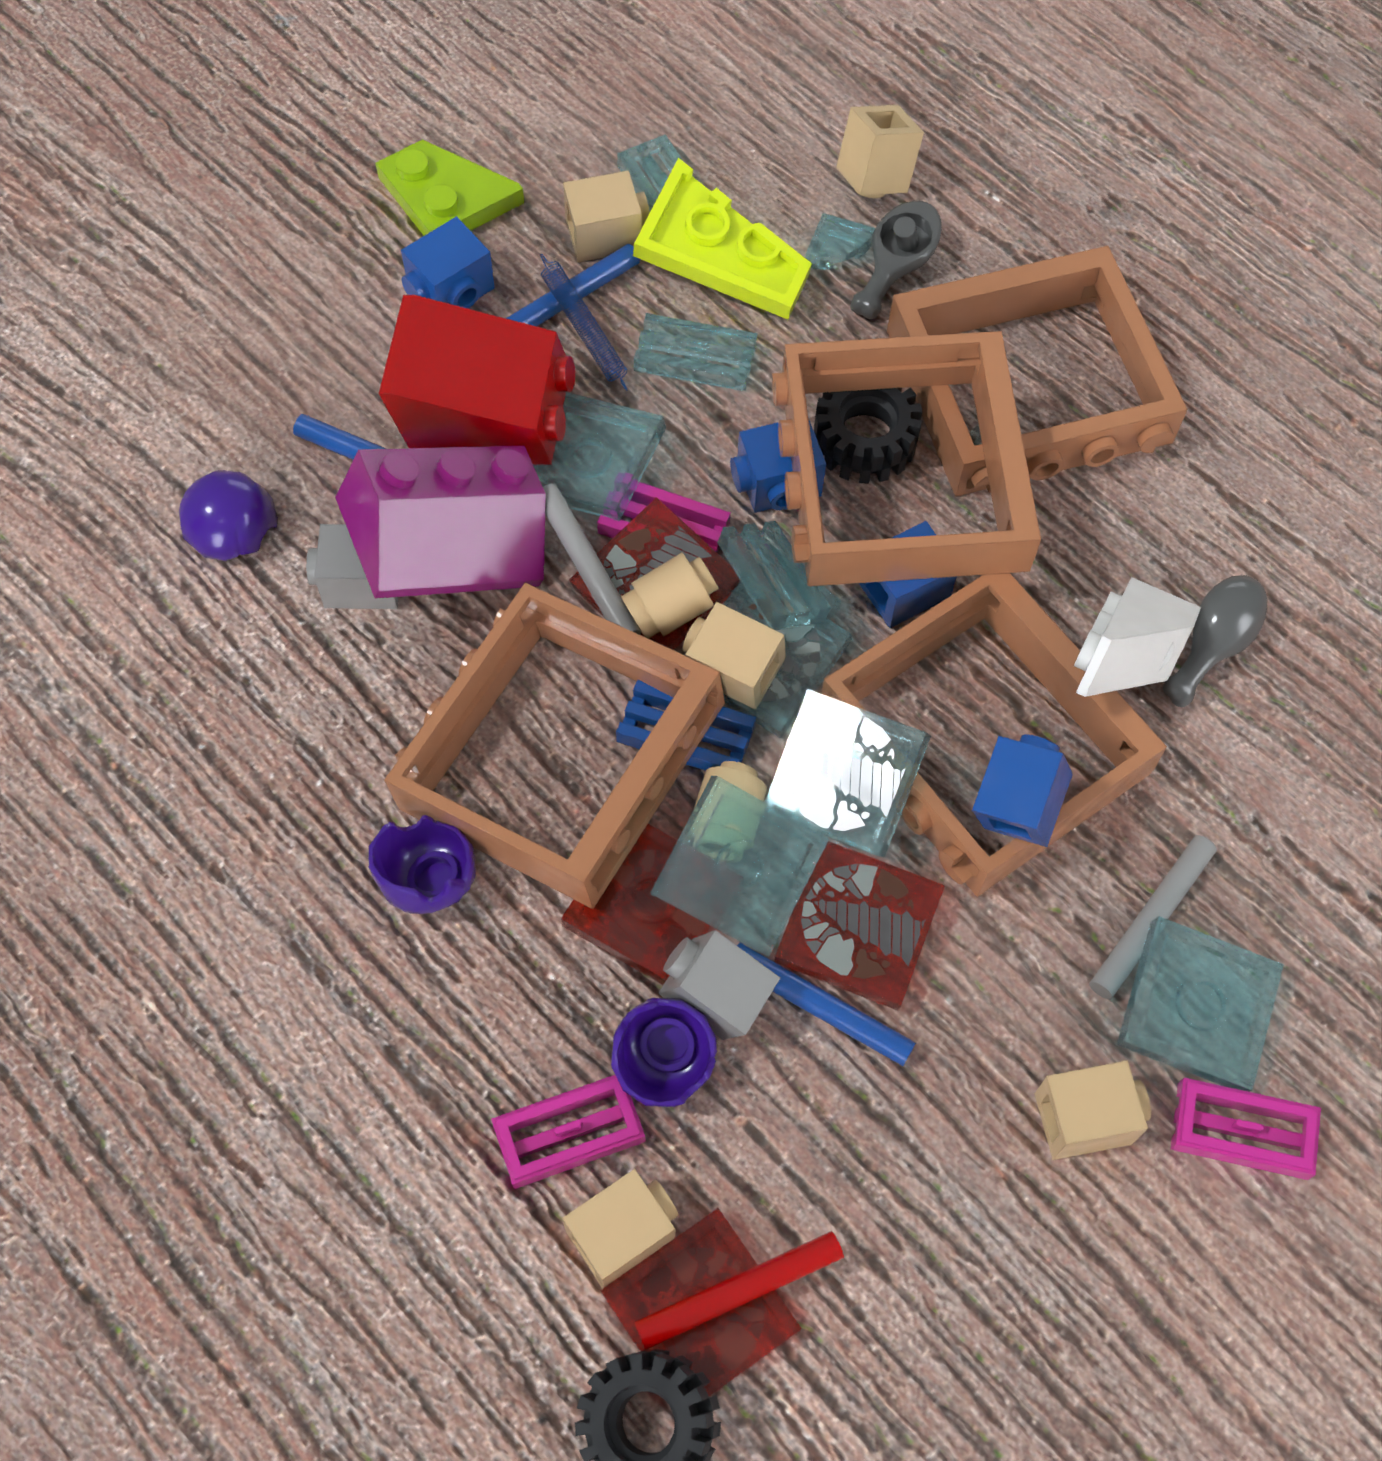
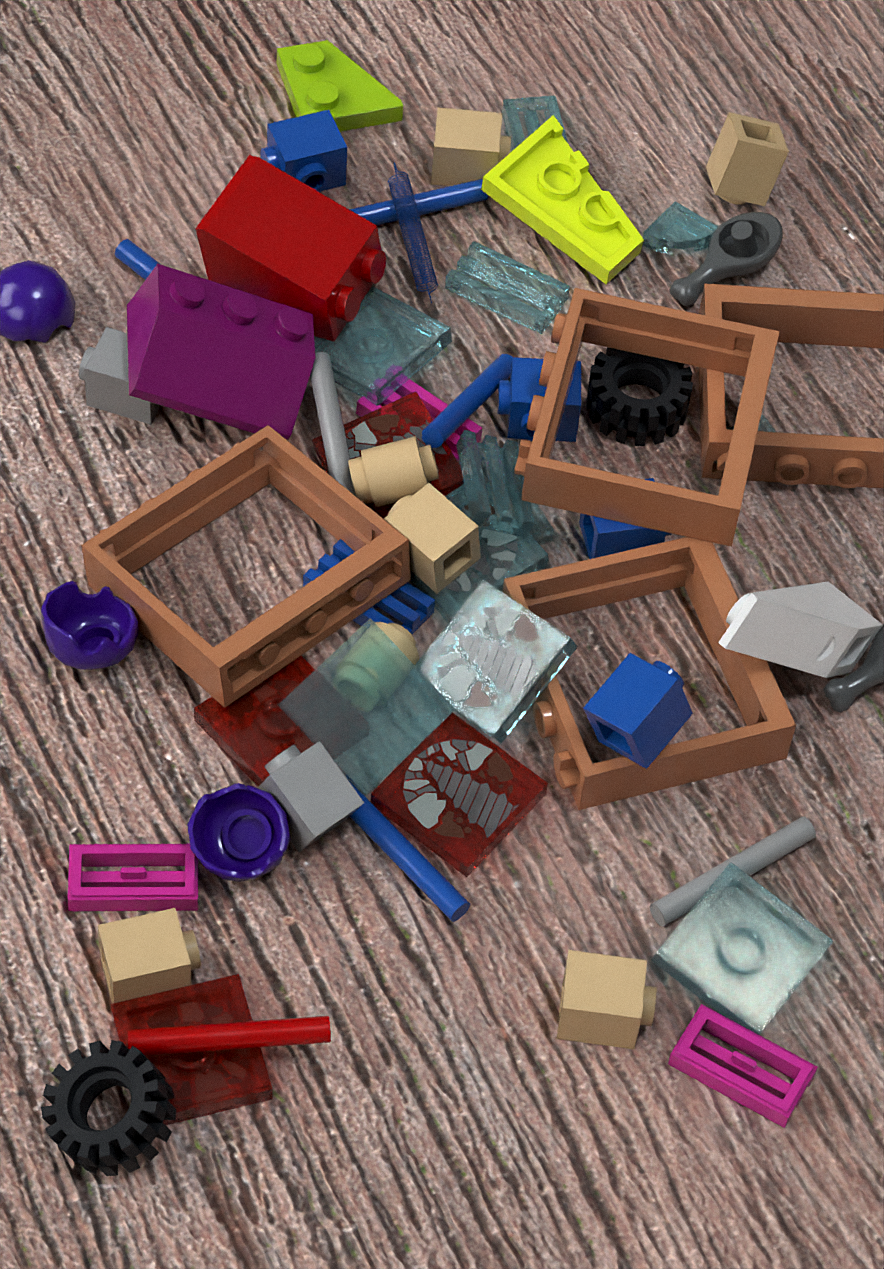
camera: 15 degrees right, 10 degrees down
(710, 491) = (467, 402): none -> blue bar

